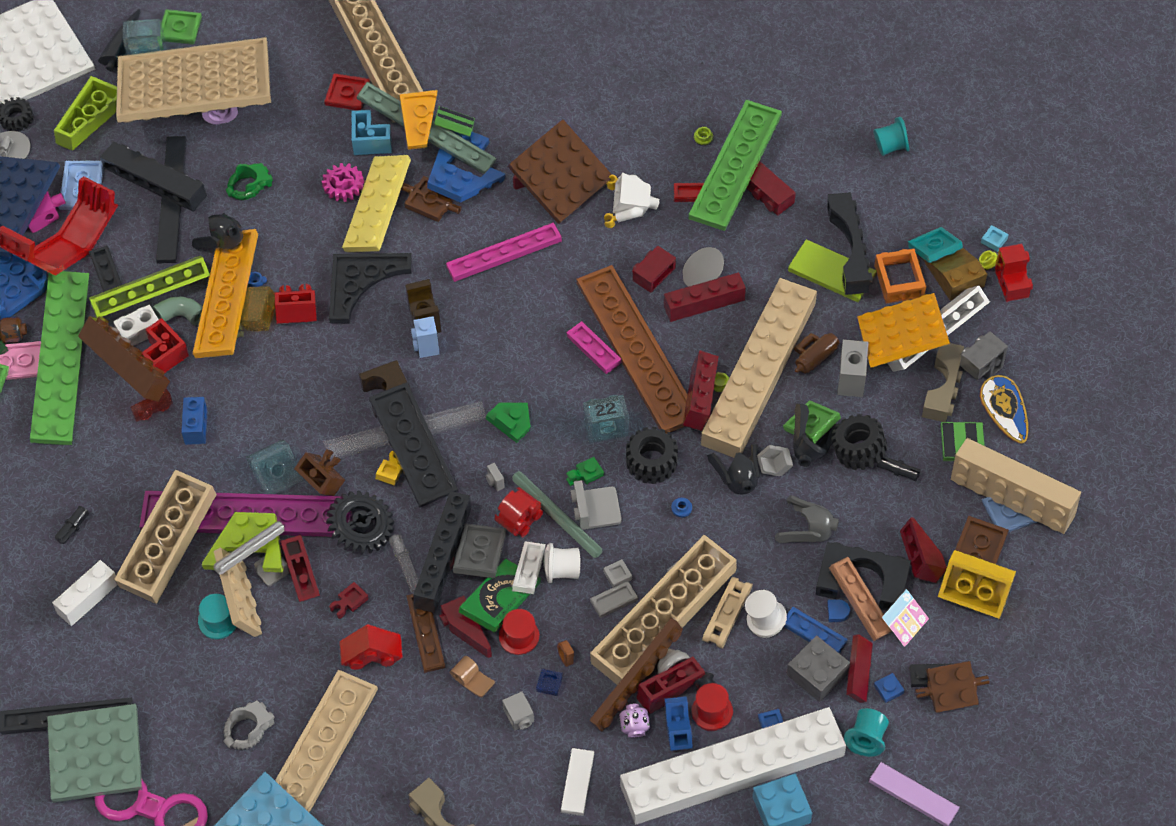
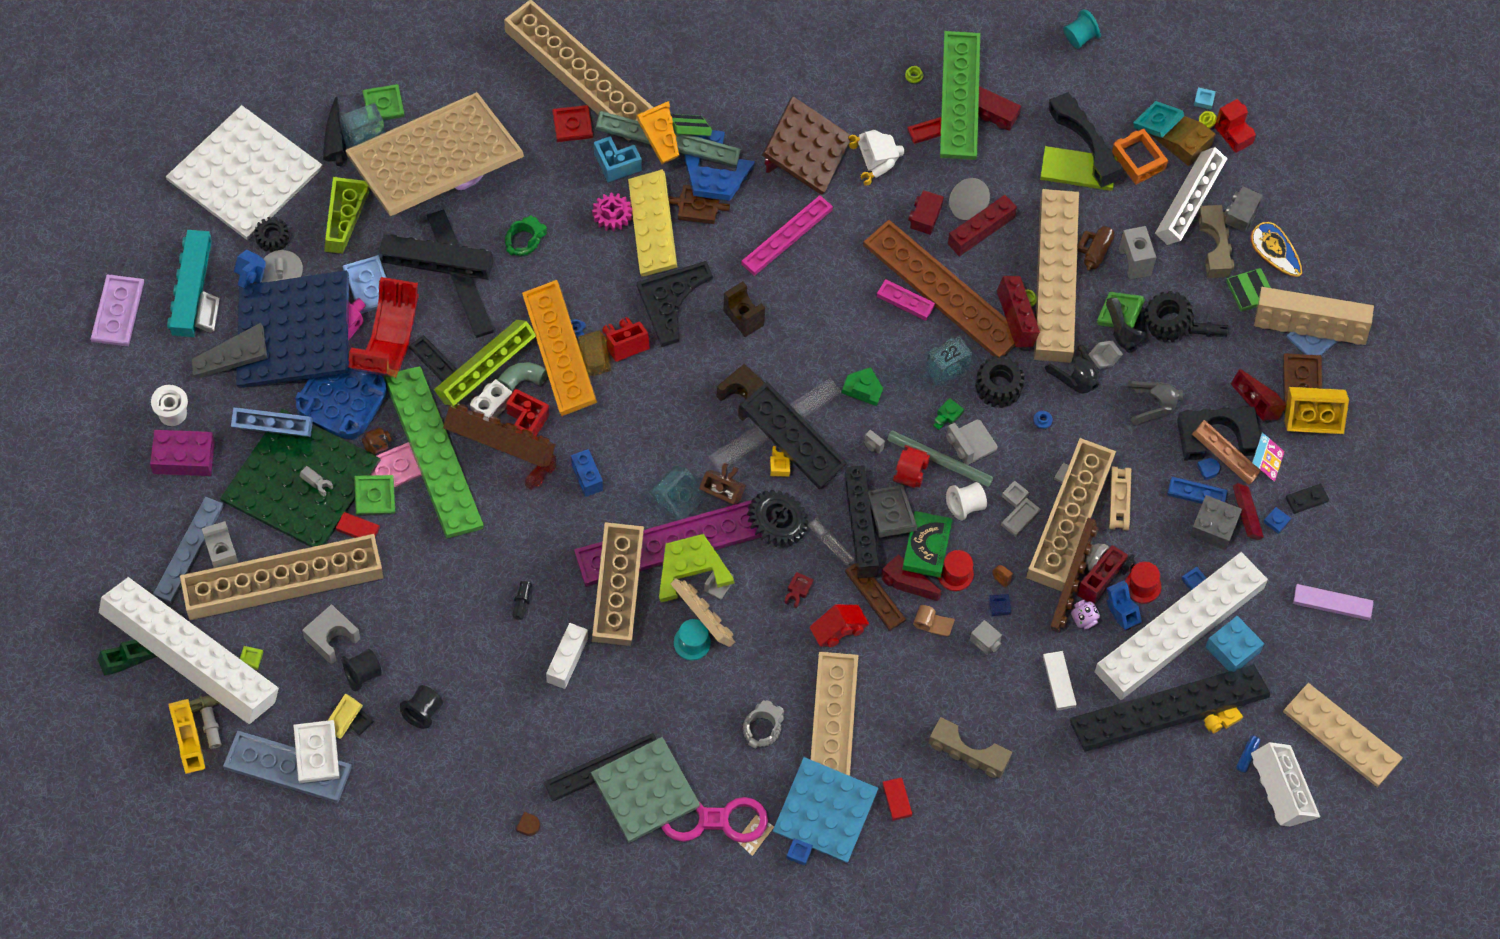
camera: 25 degrees left, 5 degrees up
(224, 233) = (534, 293): black piece -> none
(248, 548) = (700, 571): light grey axle -> none
(299, 568) = (743, 574): dark red slope -> none
(425, 337) = (758, 335): light blue brick -> none
(528, 567) = (939, 512): white tile -> none
(765, 614) = (1153, 490): white piece -> none
(867, 733) = (1278, 563): teal piece -> none
(903, 329) = (1167, 205): light orange plate -> none
(952, 686) = (1328, 503): reddish brown plate -> none

